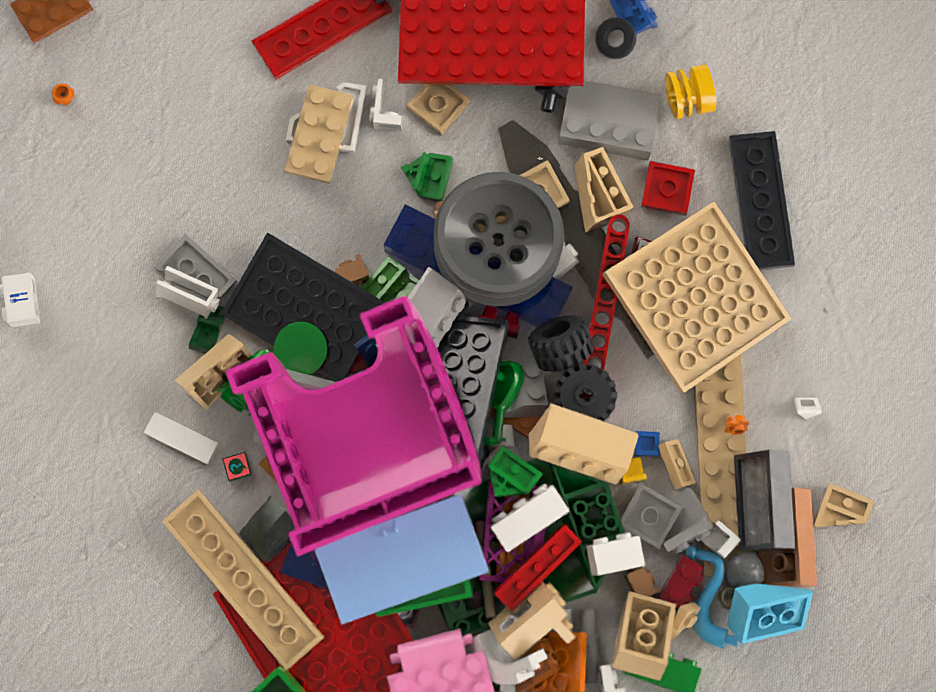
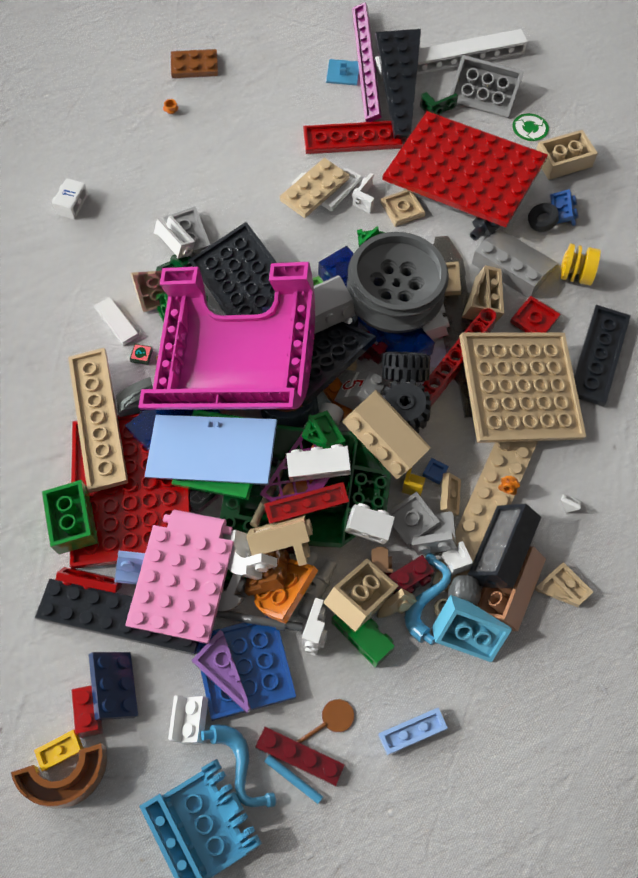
camera: 30 degrees right, 15 degrees down
(301, 347) = (227, 298): green sticker -> none
(506, 390) = (347, 382): green piece -> none

